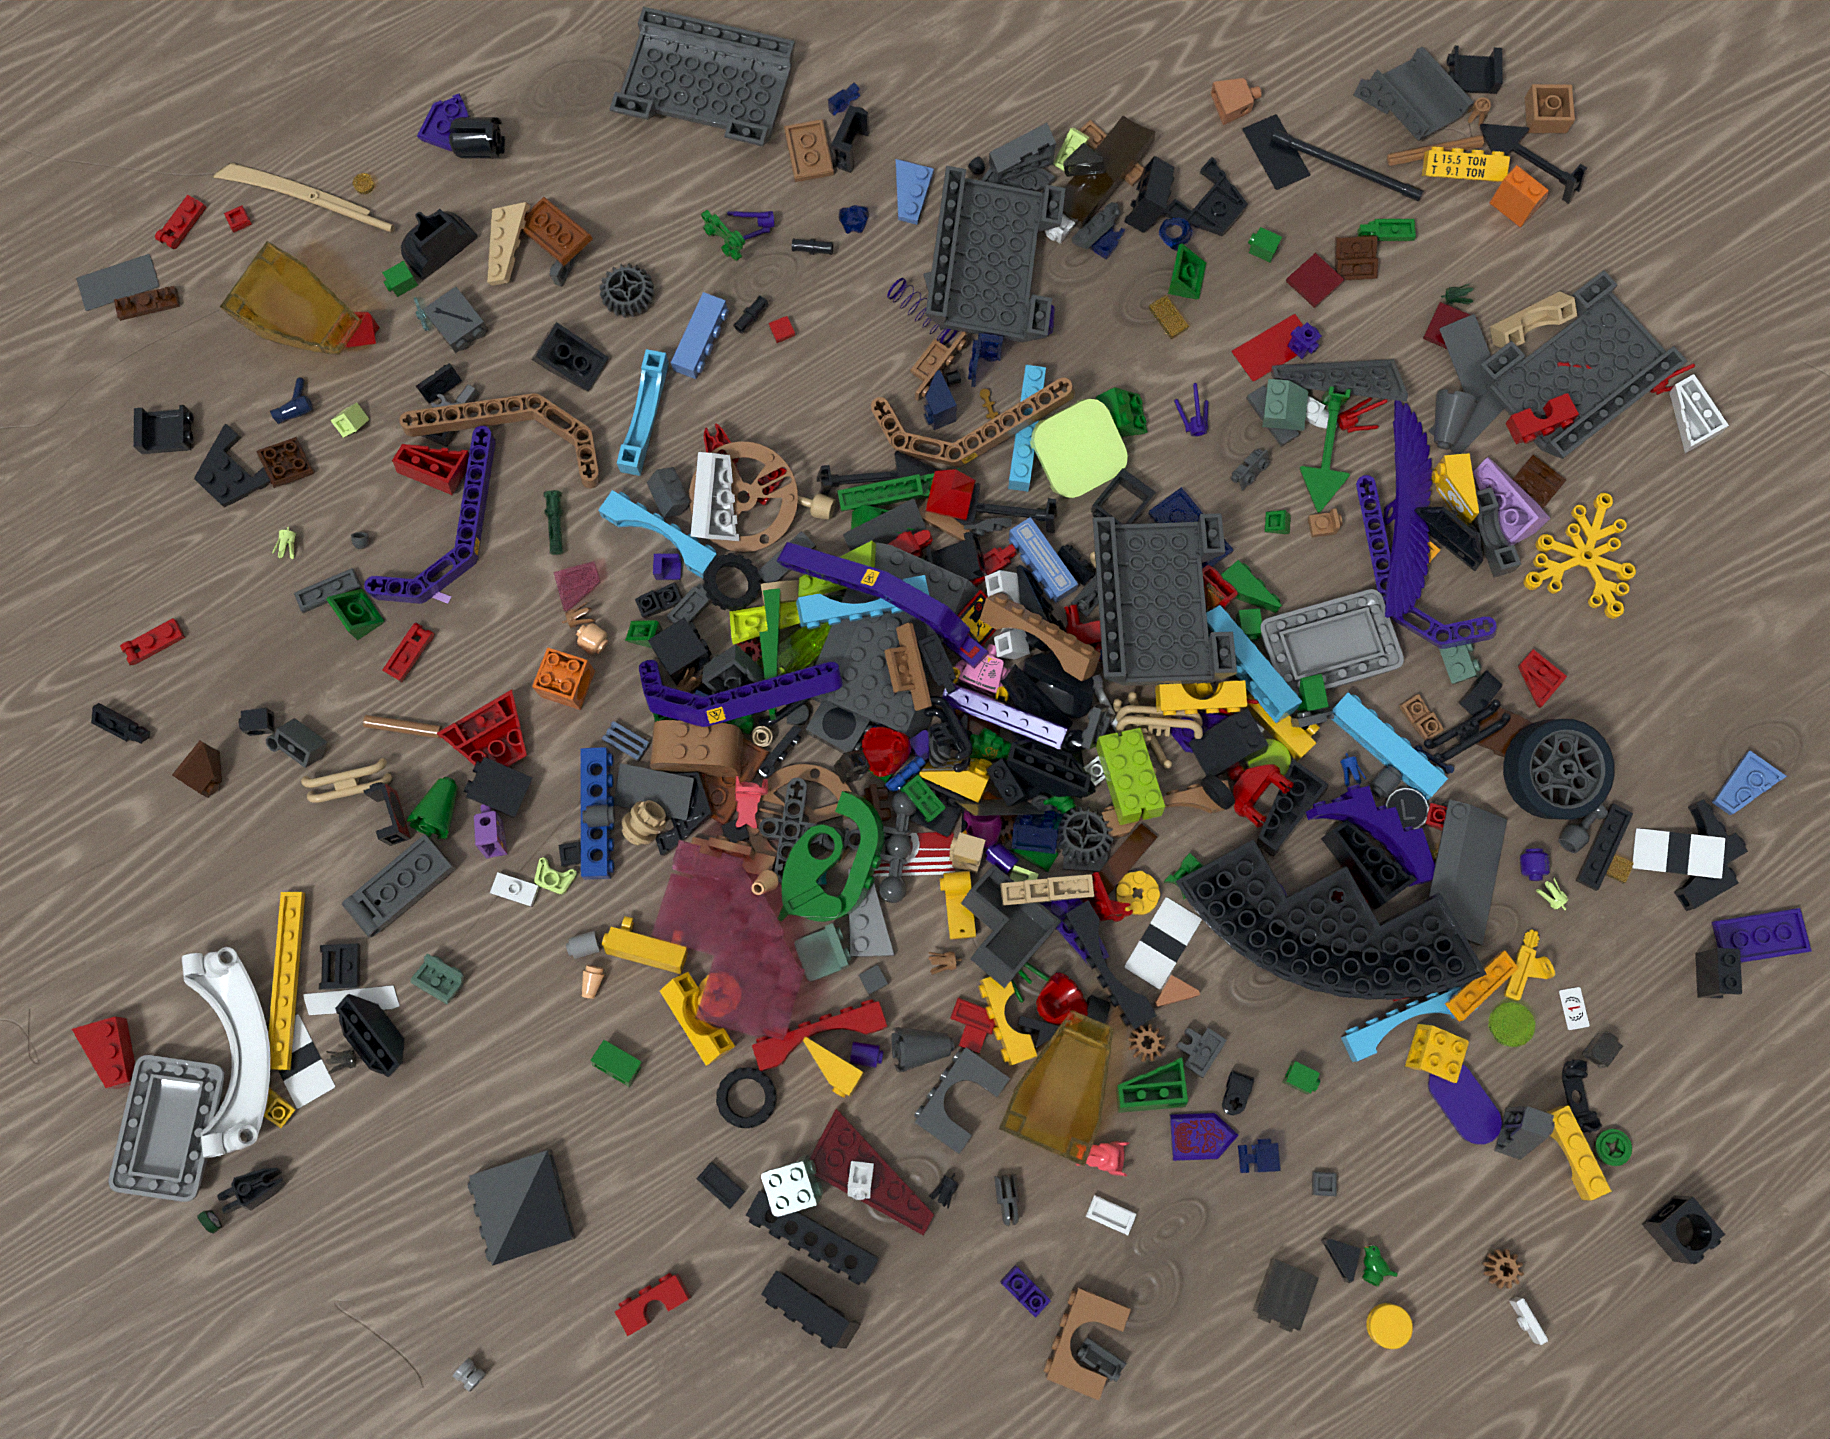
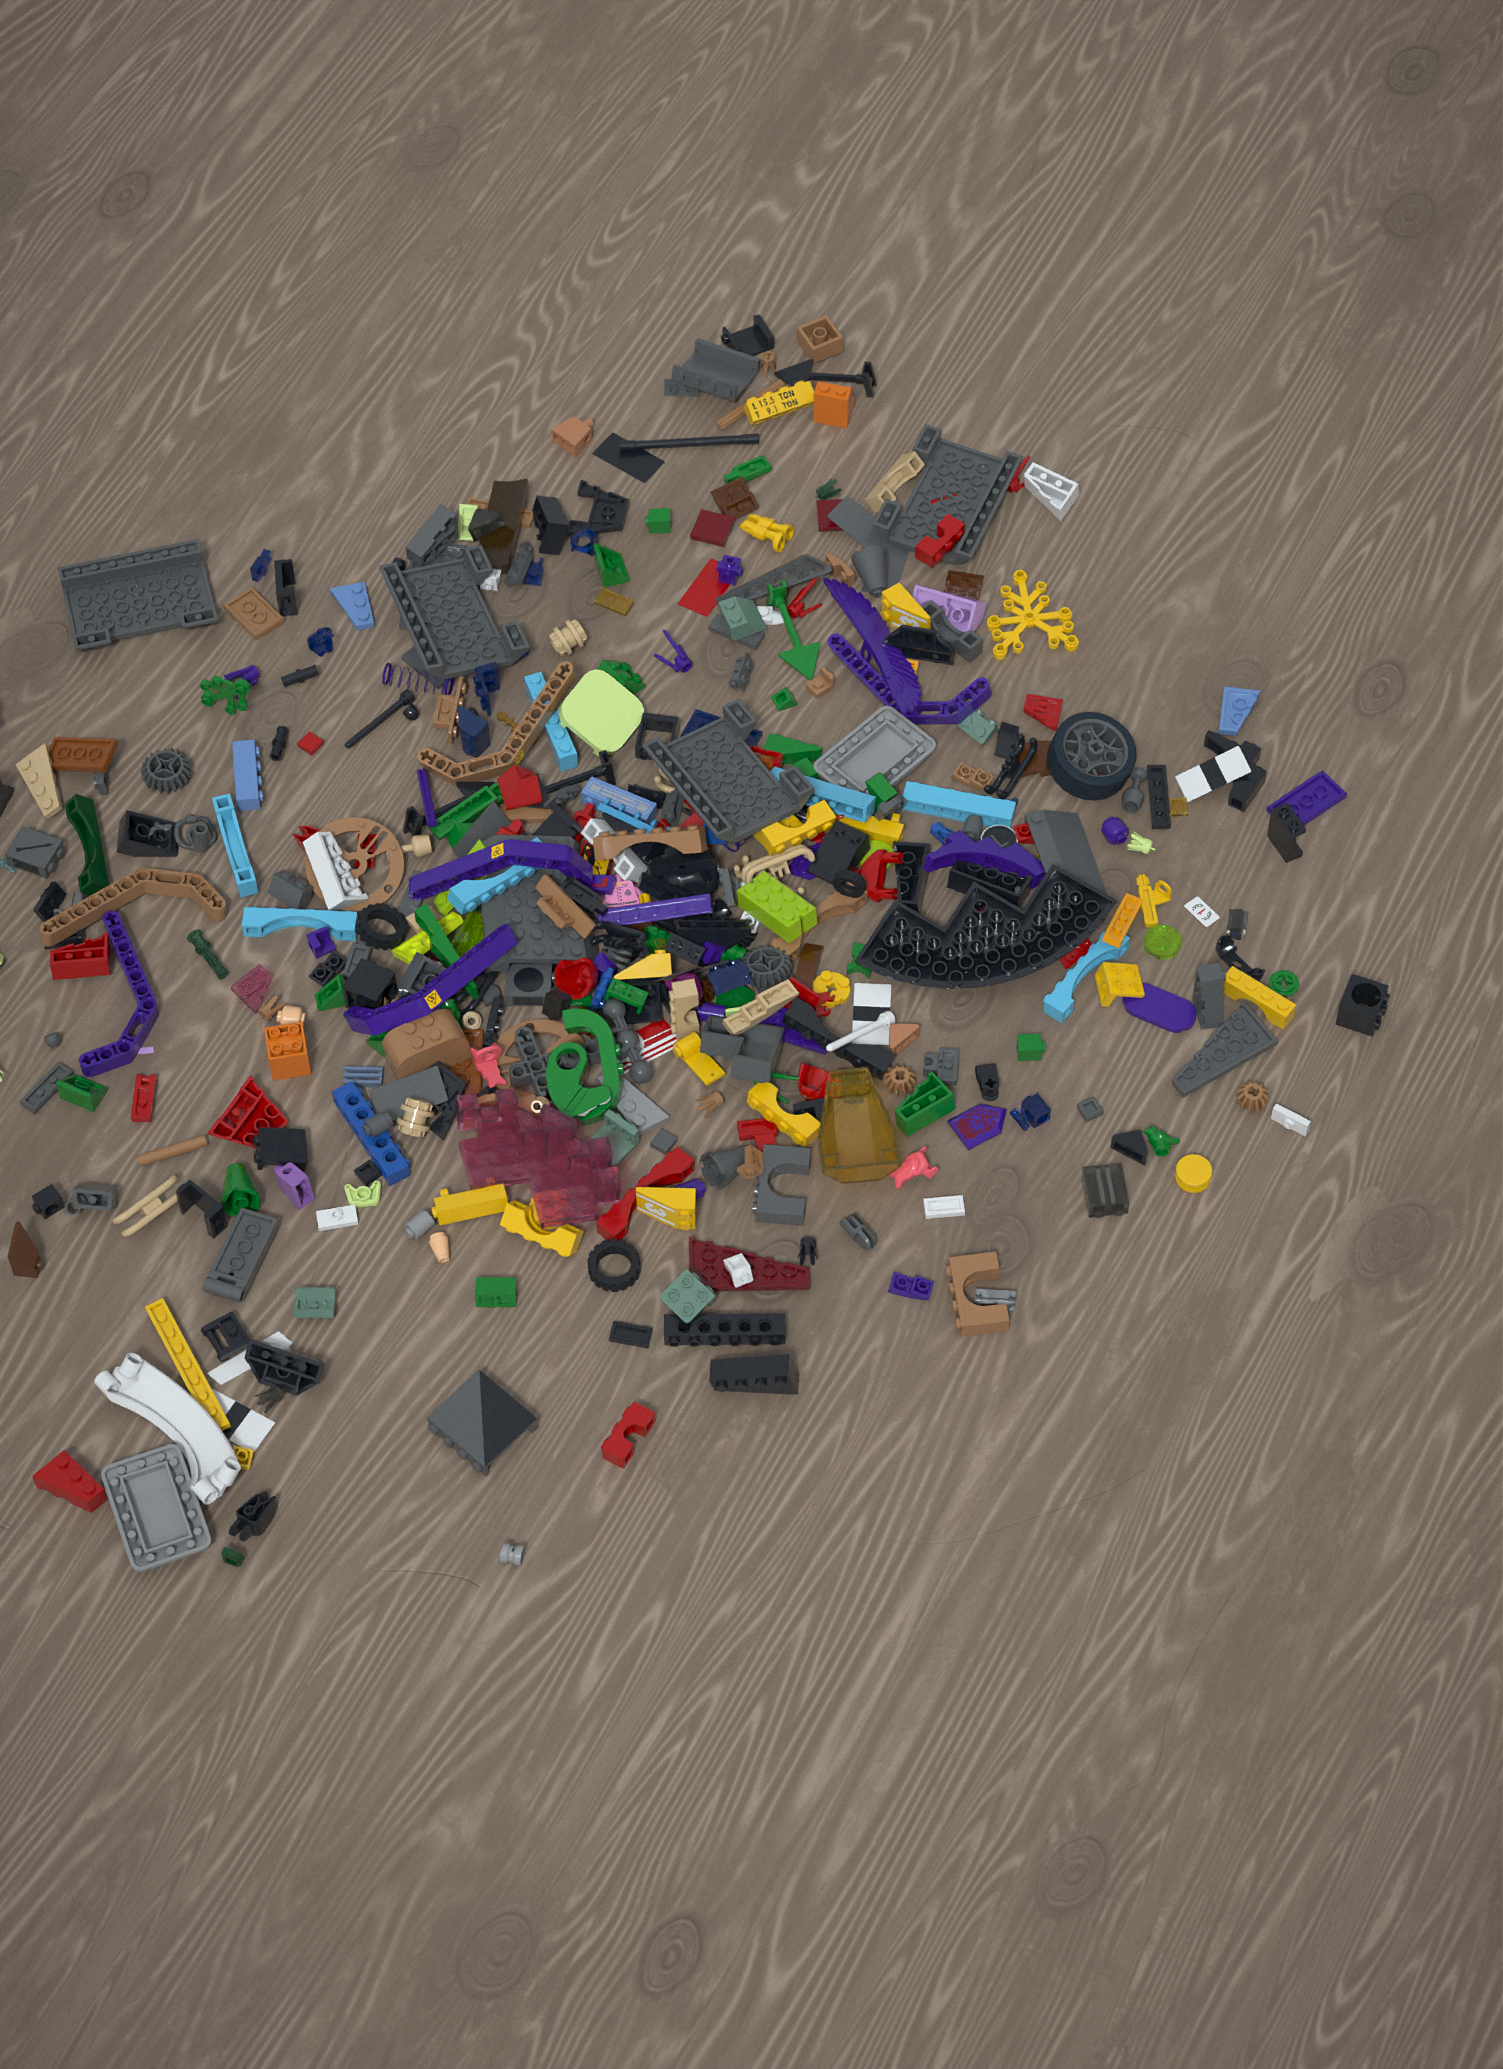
camera: 30 degrees left, 20 degrees down
(519, 302) = (83, 817): none -> dark green arch
(613, 385) = (200, 833): none -> dark grey piece
(854, 456) = (426, 798): none -> dark purple axle
(897, 345) = (411, 712): none -> black hinge
(899, 326) = (405, 698): none -> black piece
(942, 1065) = (753, 1163): none -> medium nougat bracket
(1035, 793) = (712, 953): none -> dark purple slope
(1042, 594) = (604, 807): none -> dark azure hinge
(1096, 338) = (568, 637): none -> tan piece
(1170, 963) = (884, 1021): none -> white piece
(1366, 306) = (764, 529): none -> yellow piece
(1418, 393) = (840, 569): none -> medium nougat slope
(1515, 1193) = (1229, 1047): none -> dark grey wing

